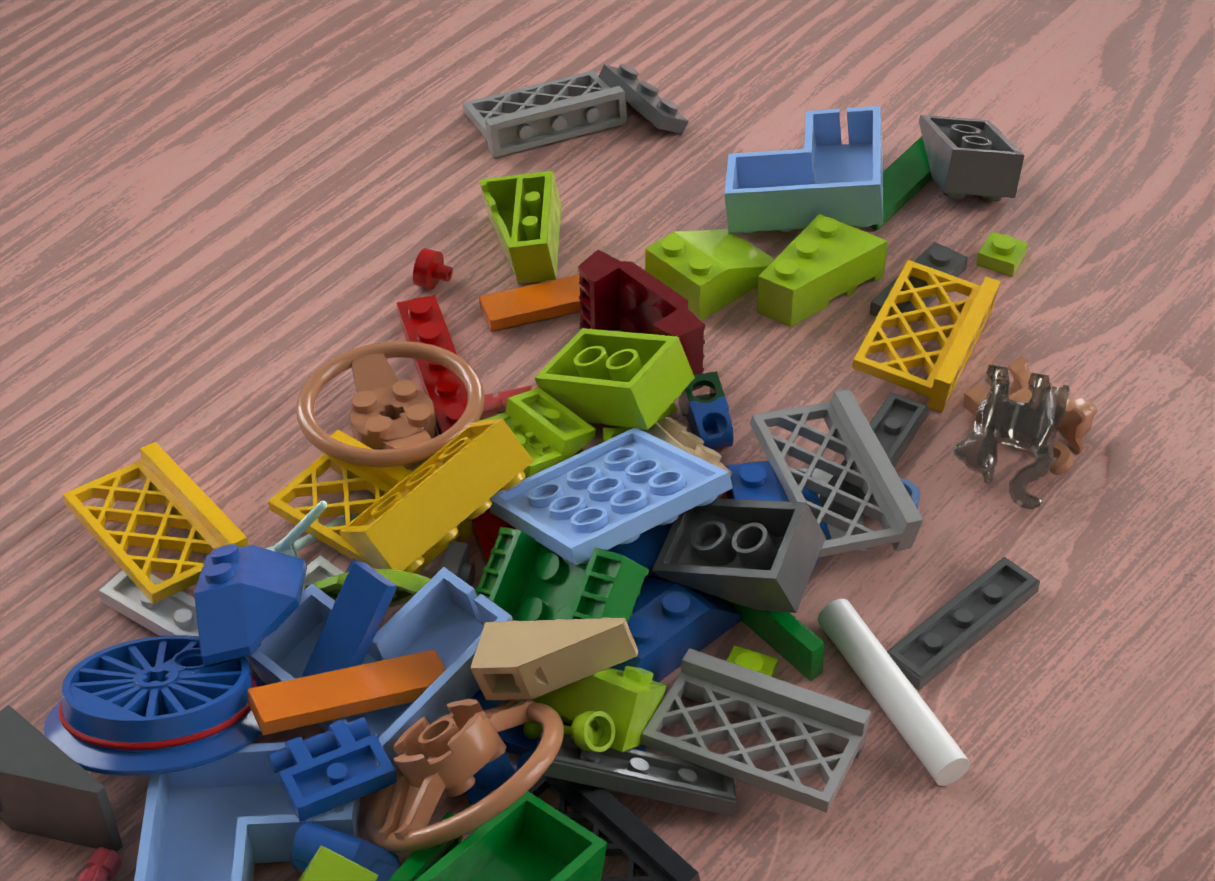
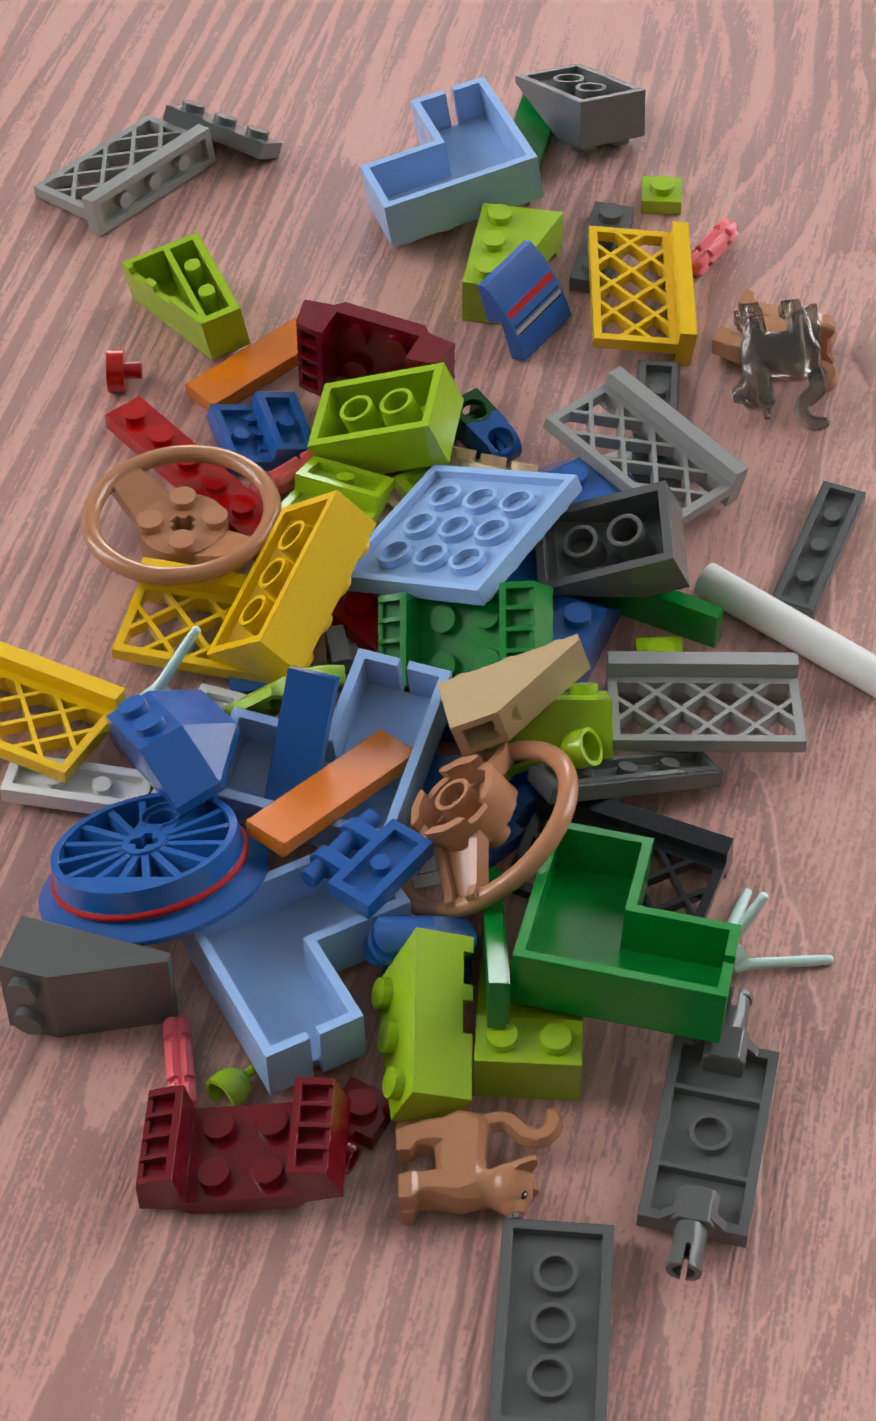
camera: 25 degrees left, 5 degrees up
(514, 356) = (265, 431): none -> blue slope
(706, 267) = (398, 283): lime slope -> none
(809, 308) = (524, 299): none -> blue slope
(1021, 312) = (713, 246): none -> coral axle

